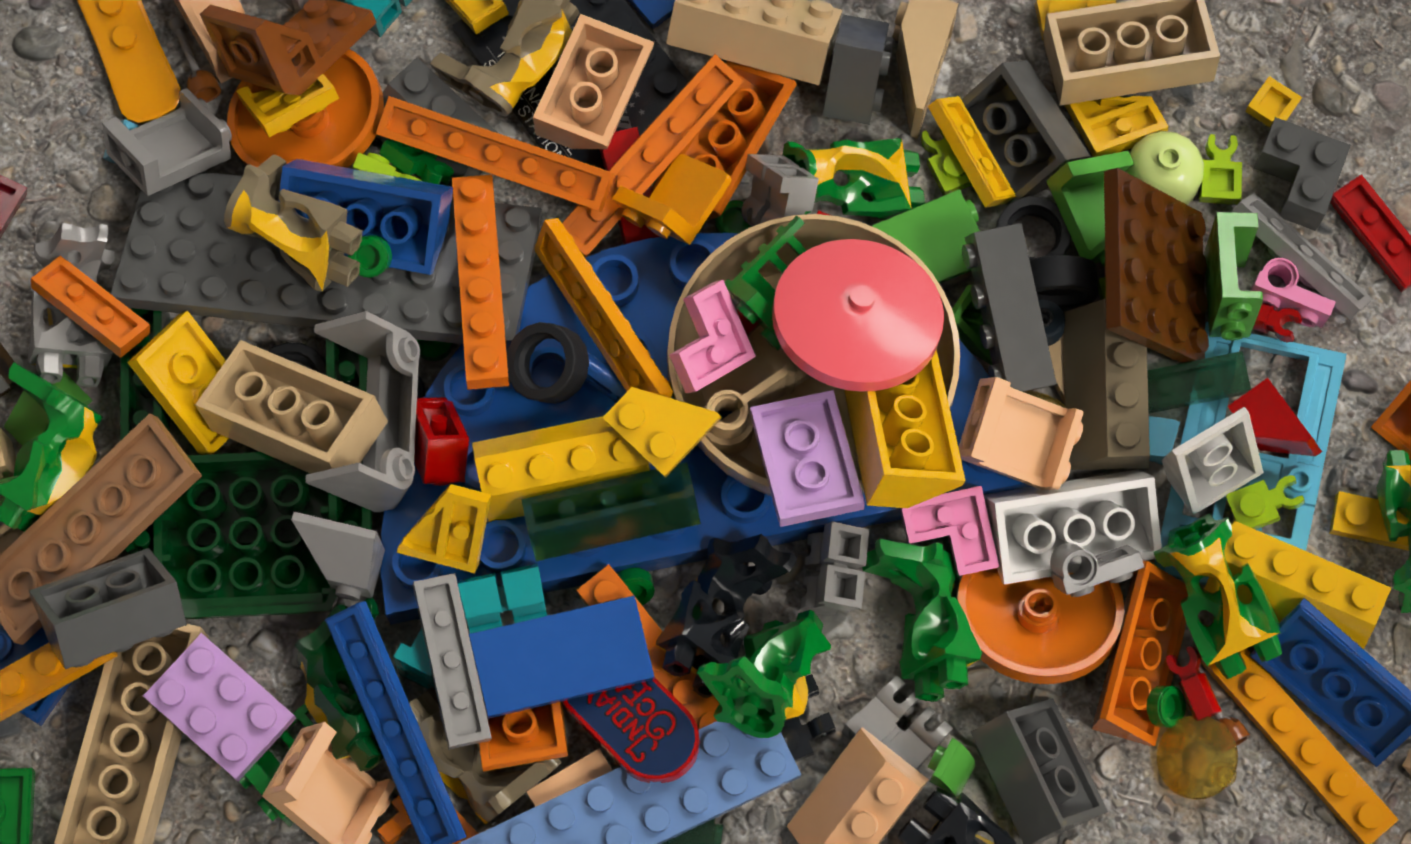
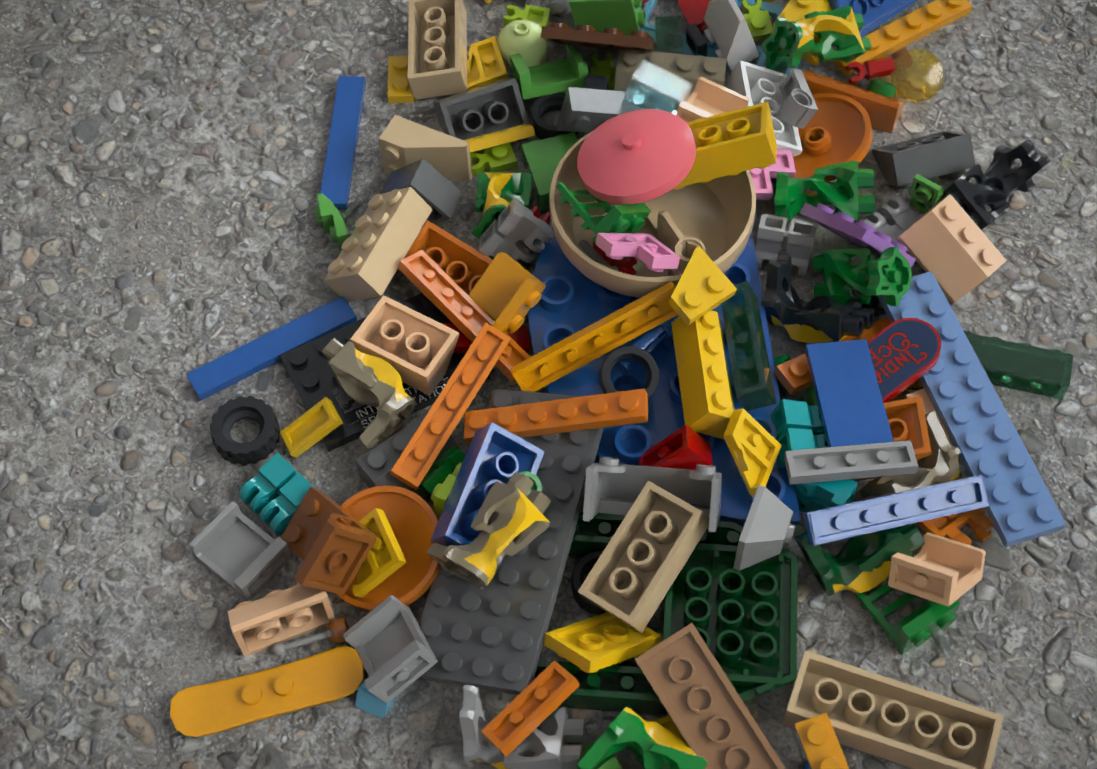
camera: 80 degrees left, 15 degrees down
(108, 608) = (794, 704): dark grey slope -> none
(219, 707) = (872, 638): lavender plate -> none
(807, 458) = (733, 202): lavender plate -> none
(836, 661) = (855, 233): none -> medium lavender plate
(1038, 350) = (657, 88): none -> clear light blue brick
(1201, 416) = (696, 40): none -> black tile

